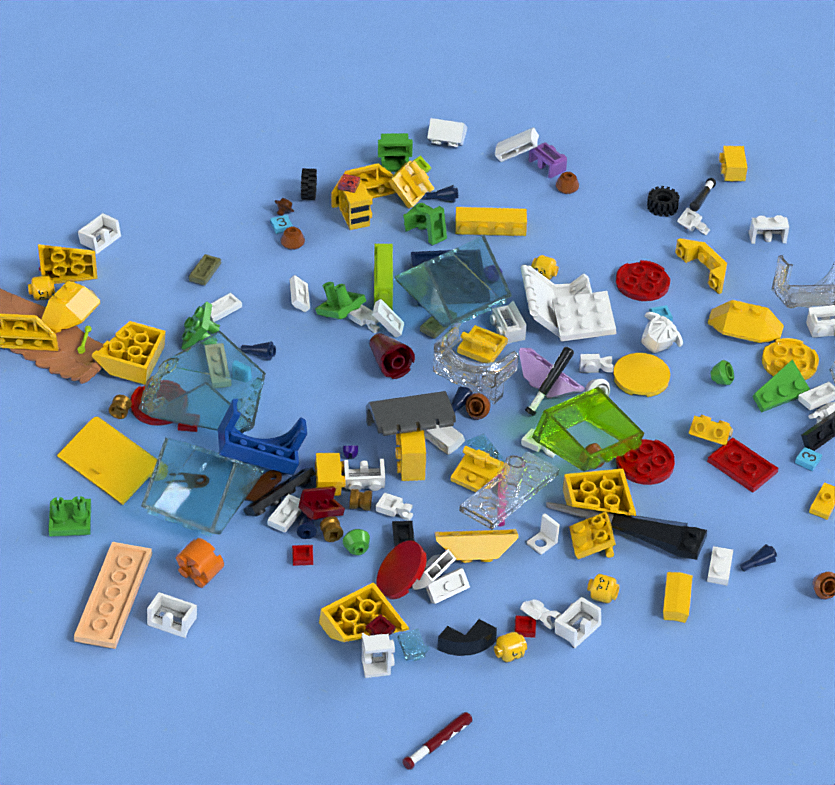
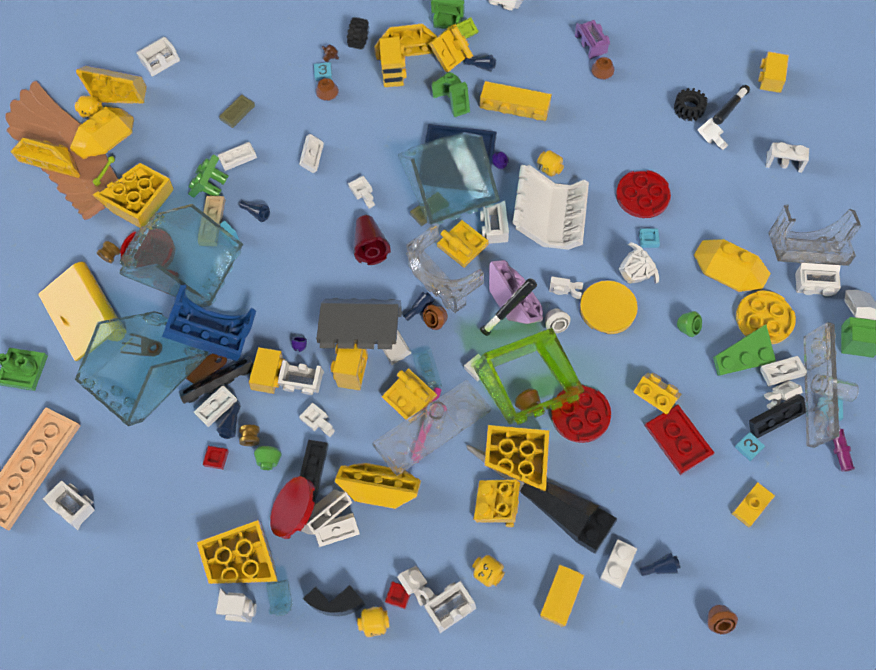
camera: 20 degrees right, 20 degrees up
(199, 562) = (110, 452): orange brick -> none
(320, 503) = (246, 405): dark red bracket -> none
(339, 301) = (342, 171): bright green plate -> none
(349, 183) = (386, 43): clear pink tile -> none
(360, 499) = (288, 405): pearl gold wheel -> none
(380, 625) = (246, 578): dark red tile -> none
(383, 273) = (387, 160): lime door -> none
(388, 318) = (380, 198): white plate -> none
(516, 144) = (565, 19): white piece -> none
(548, 533) = (457, 485): white bracket -> none
(584, 316) = (568, 231): white plate -> none
(690, 250) = (702, 167): yellow slope -> none

